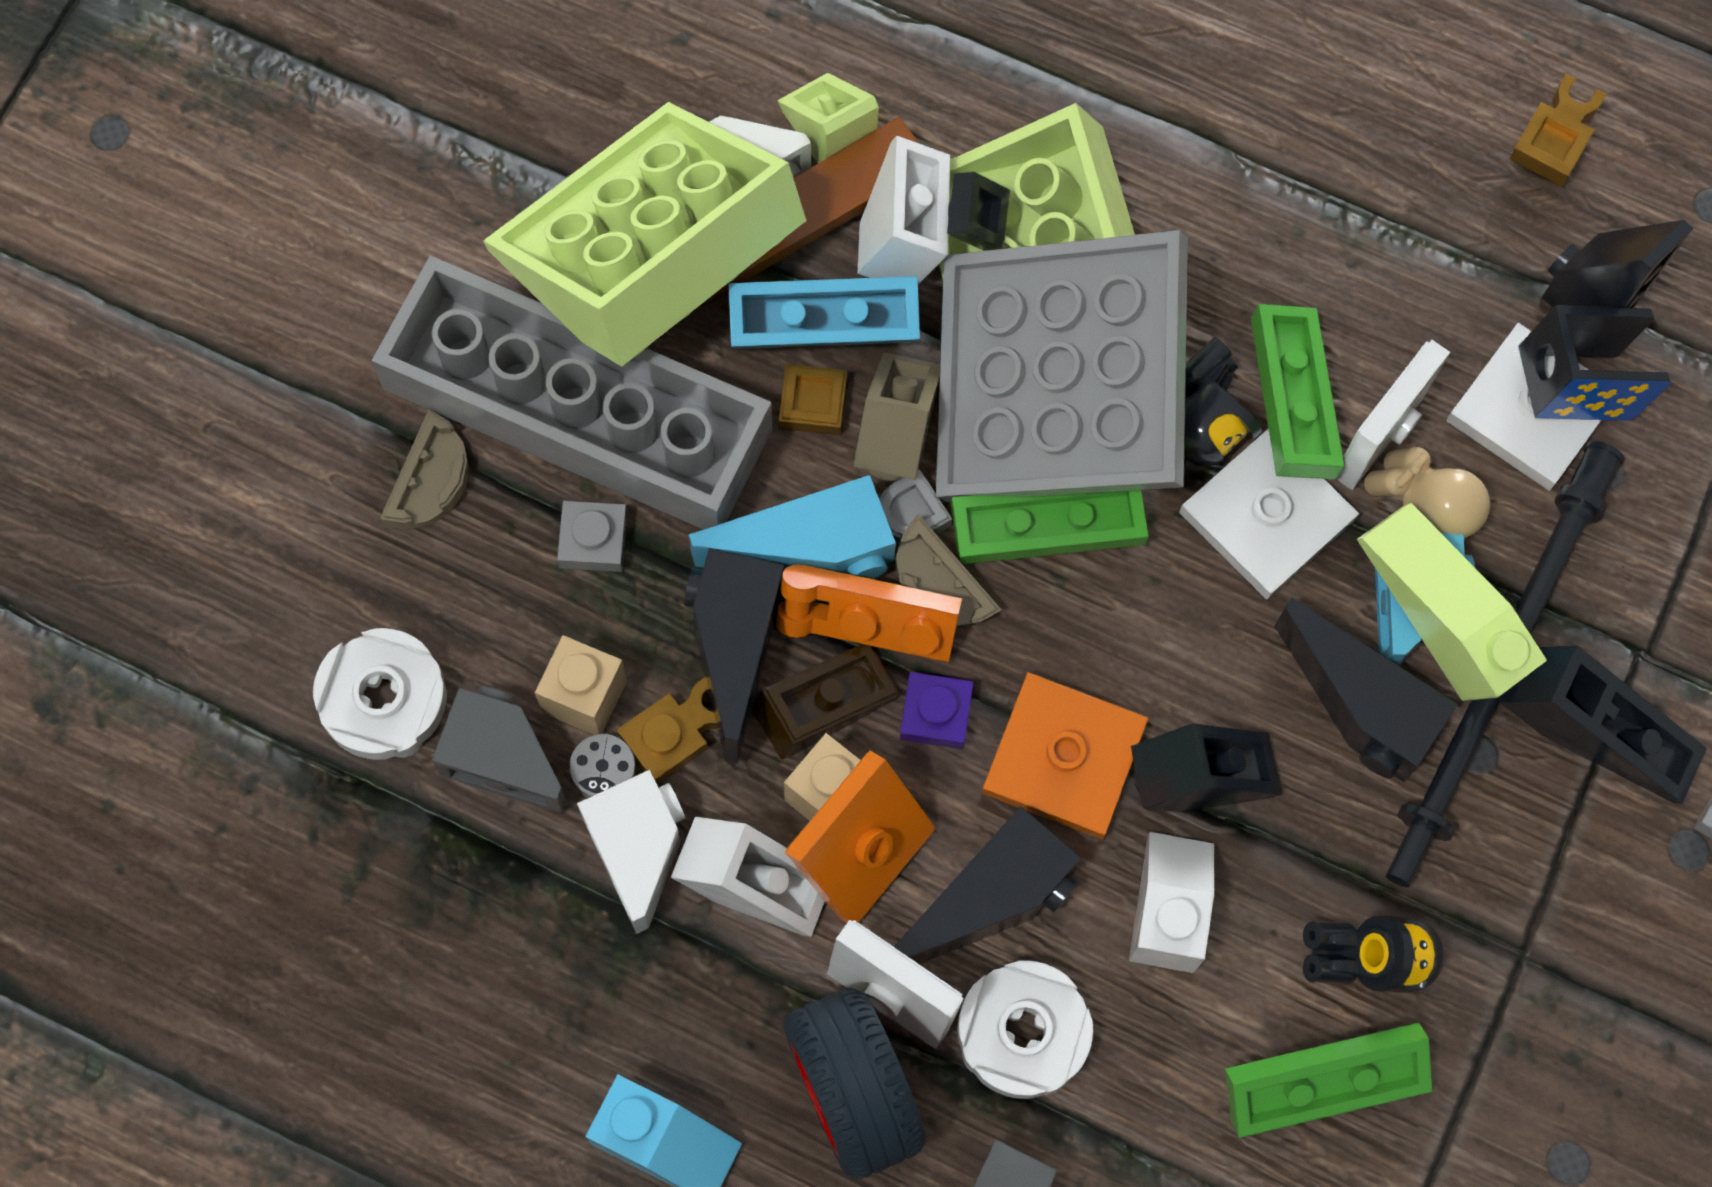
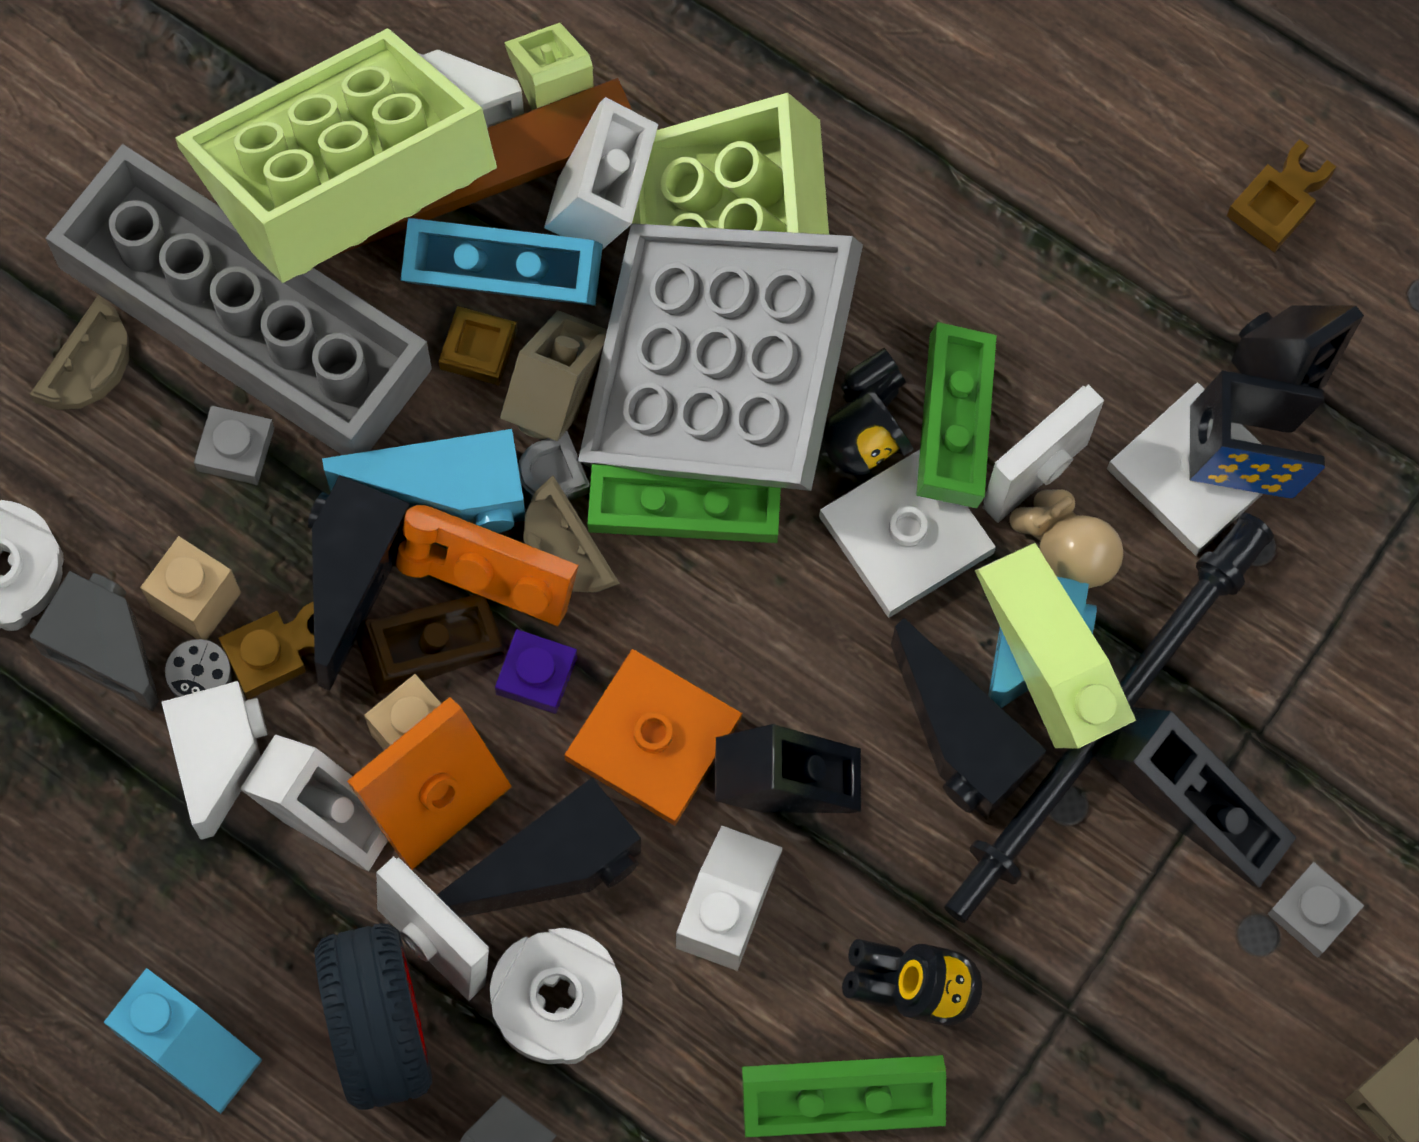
camera: 10 degrees right, 0 degrees up
(978, 211) = (672, 185): black plate -> none

